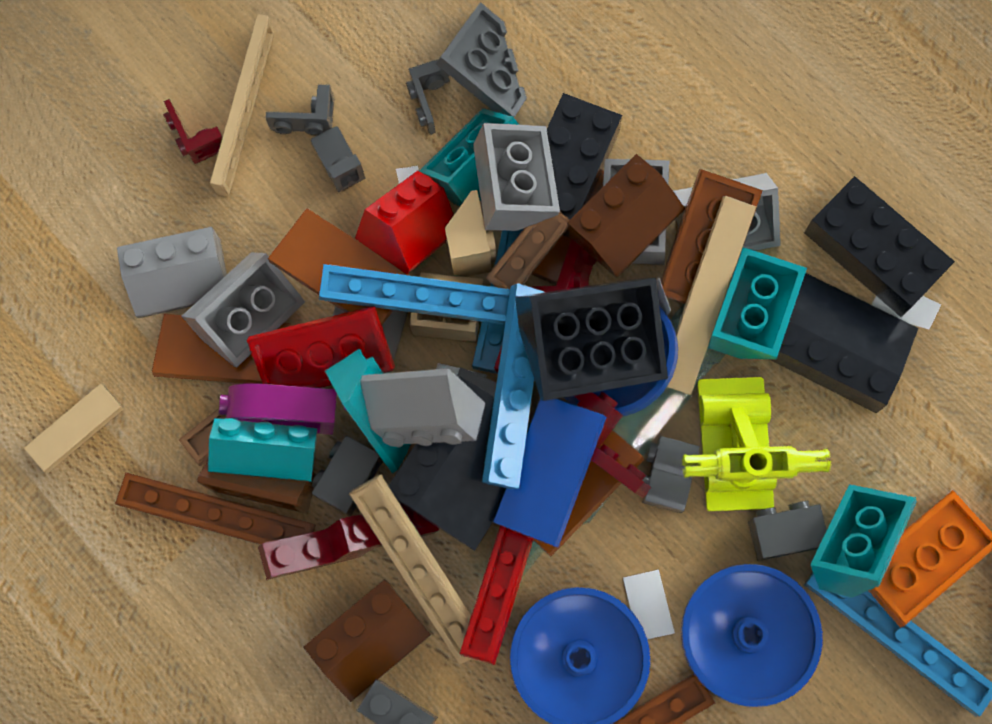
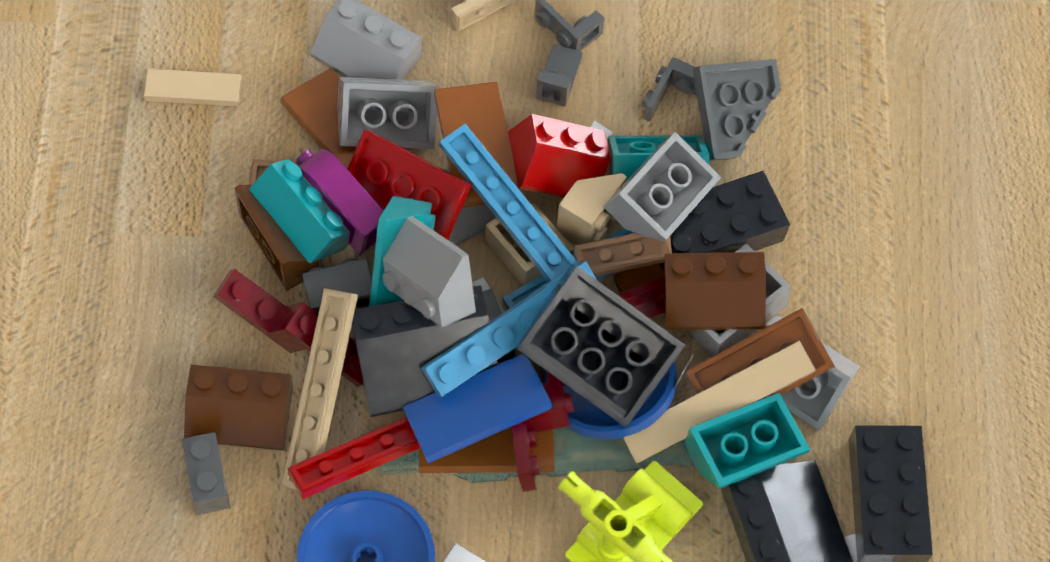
camera: 35 degrees right, 10 degrees down
(207, 511) = (220, 219): dark orange tile -> none
(666, 476) = (553, 509): dark grey brick -> none

